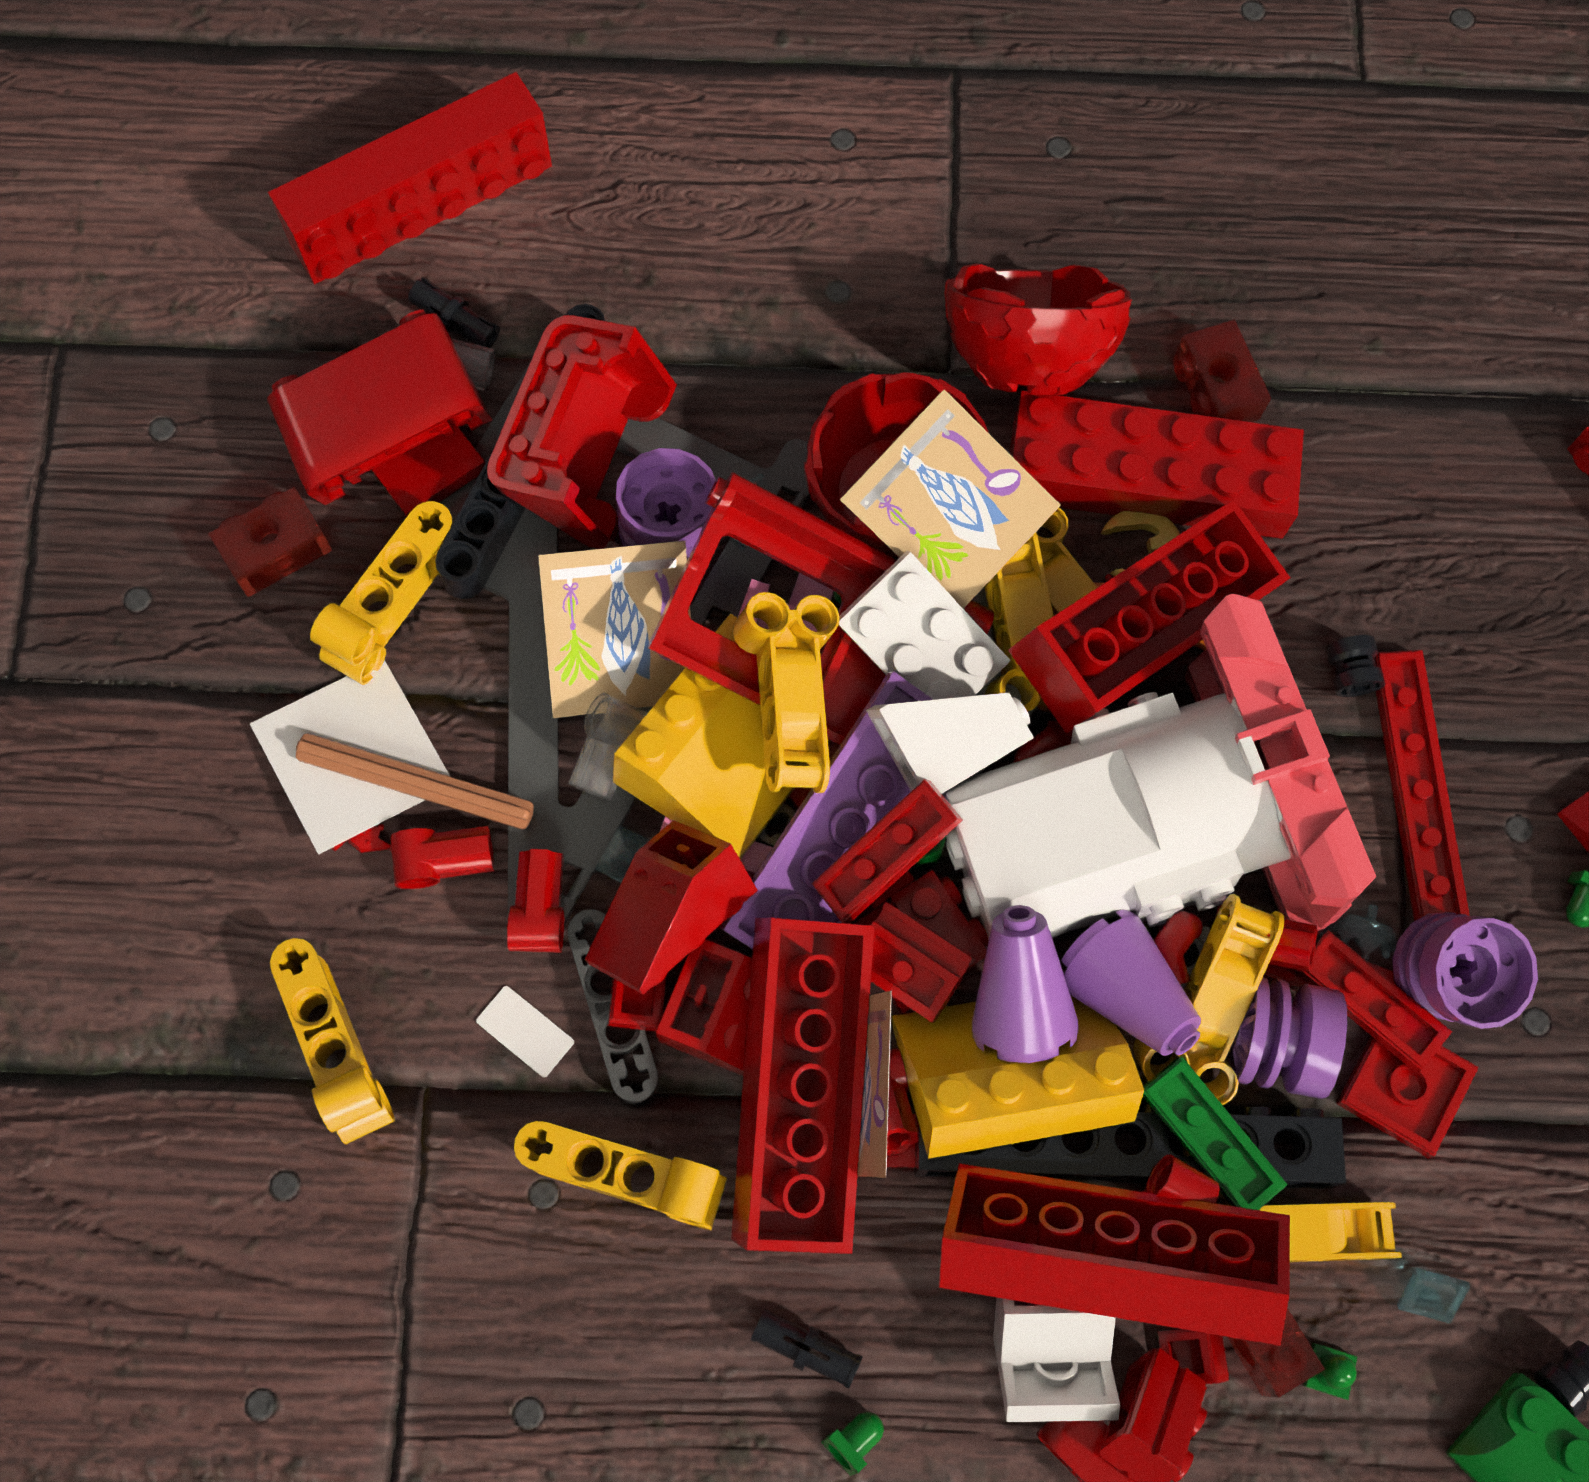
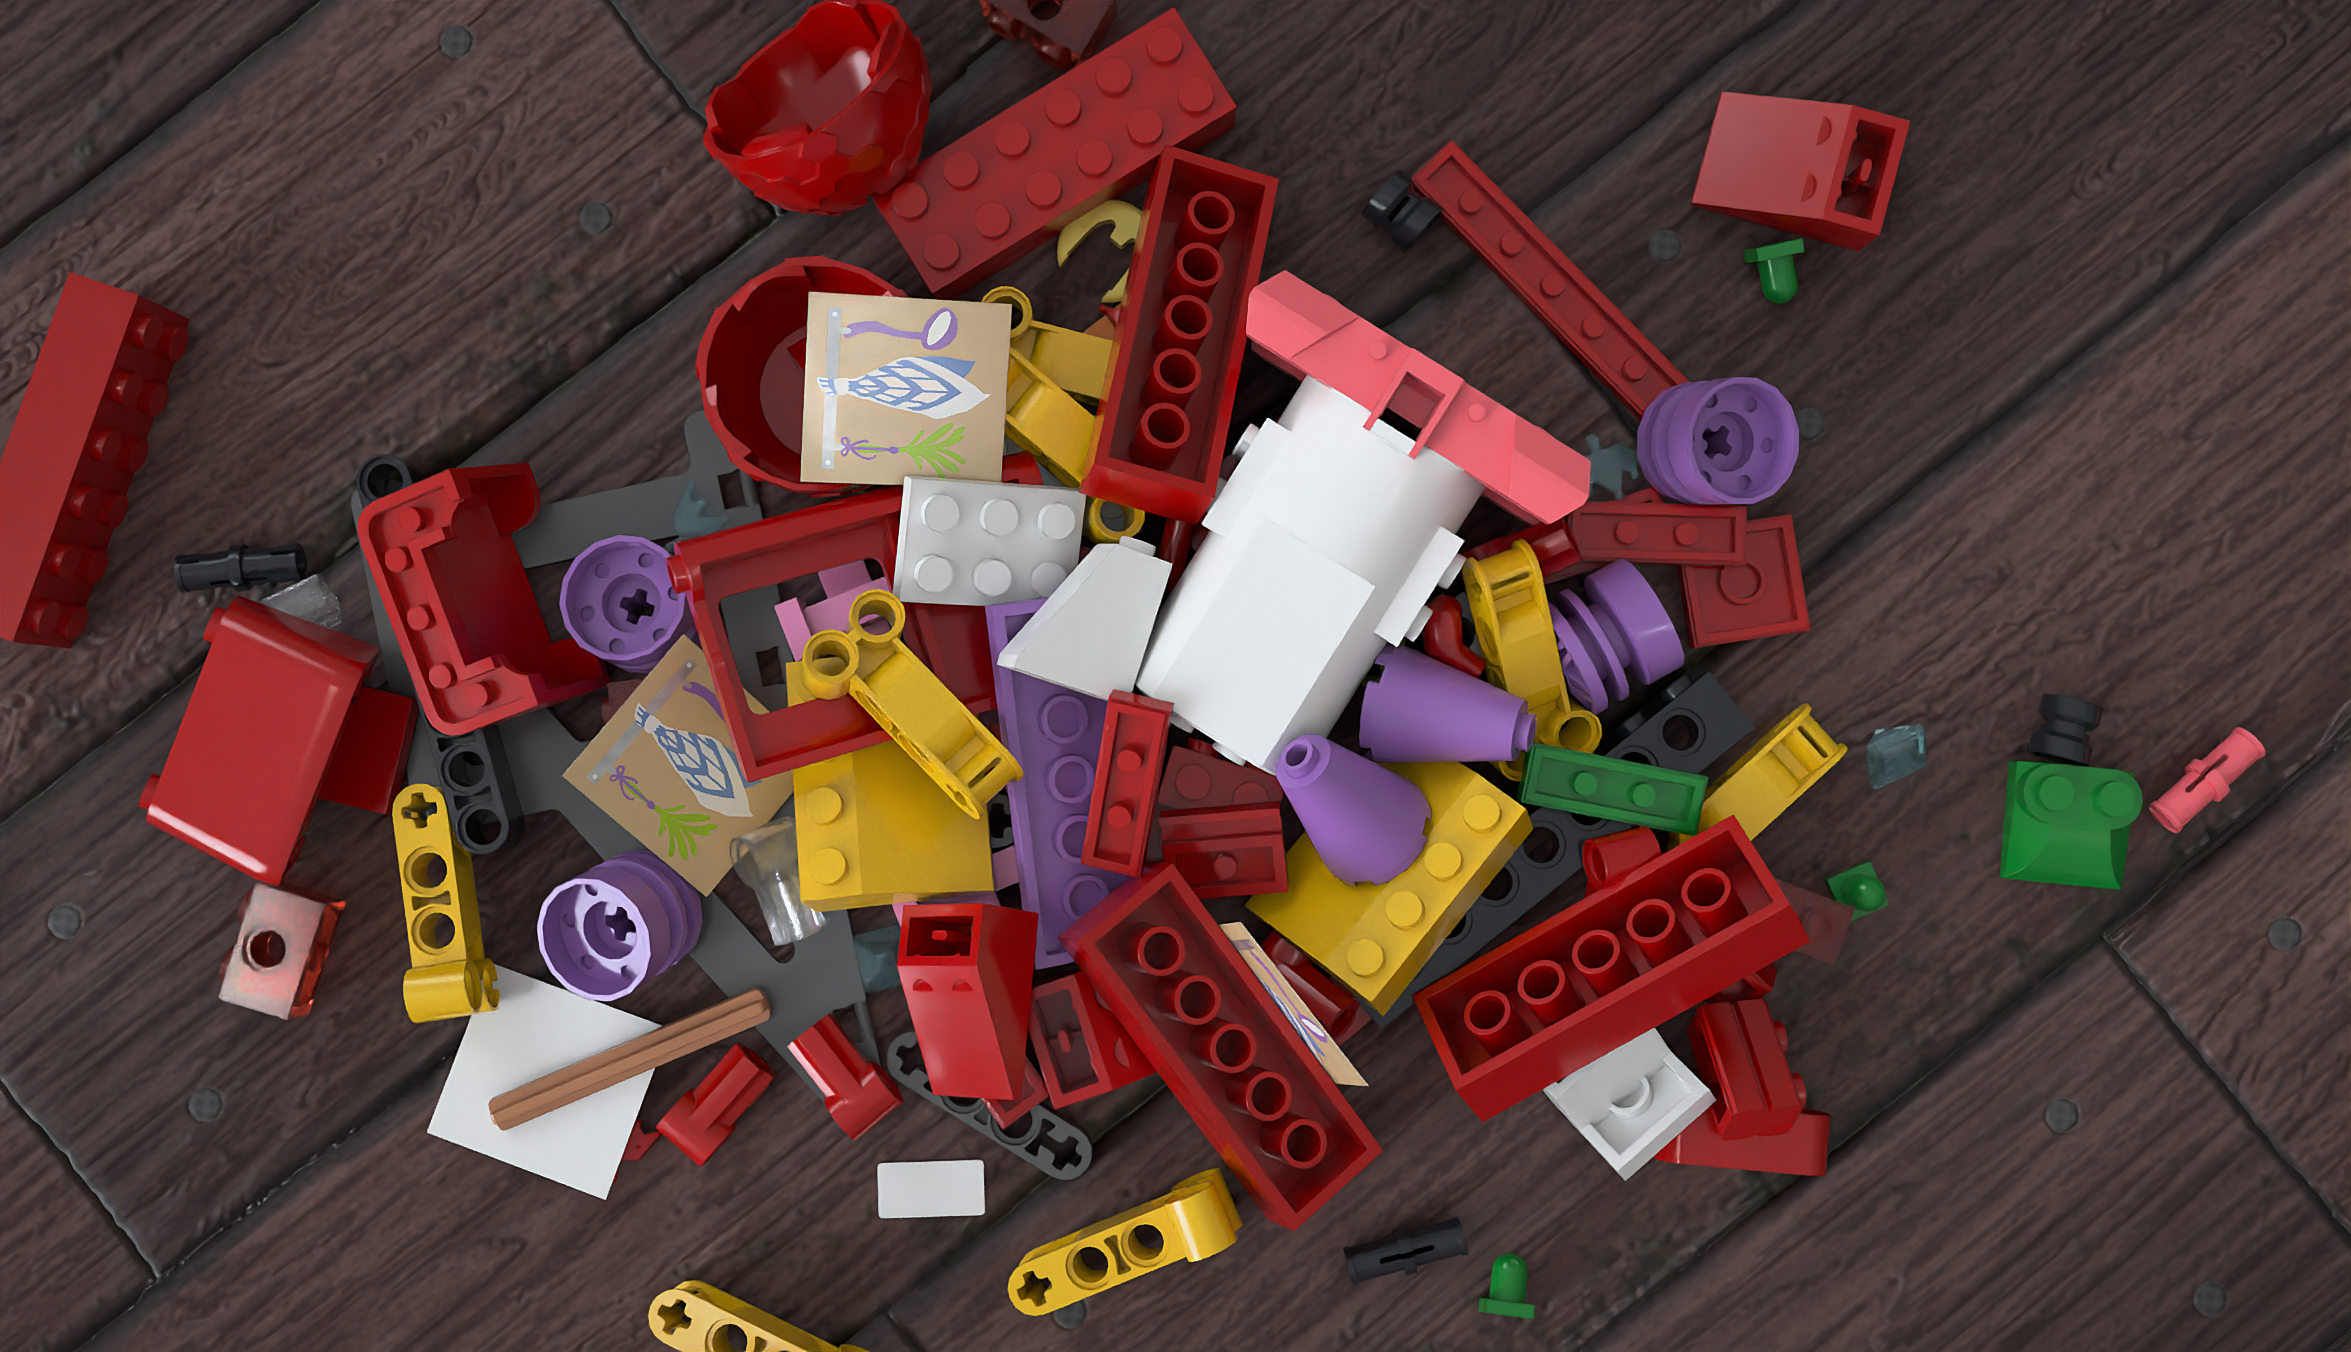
camera: 40 degrees left, 15 degrees up
(485, 686) = (618, 925): none -> medium lavender wheel

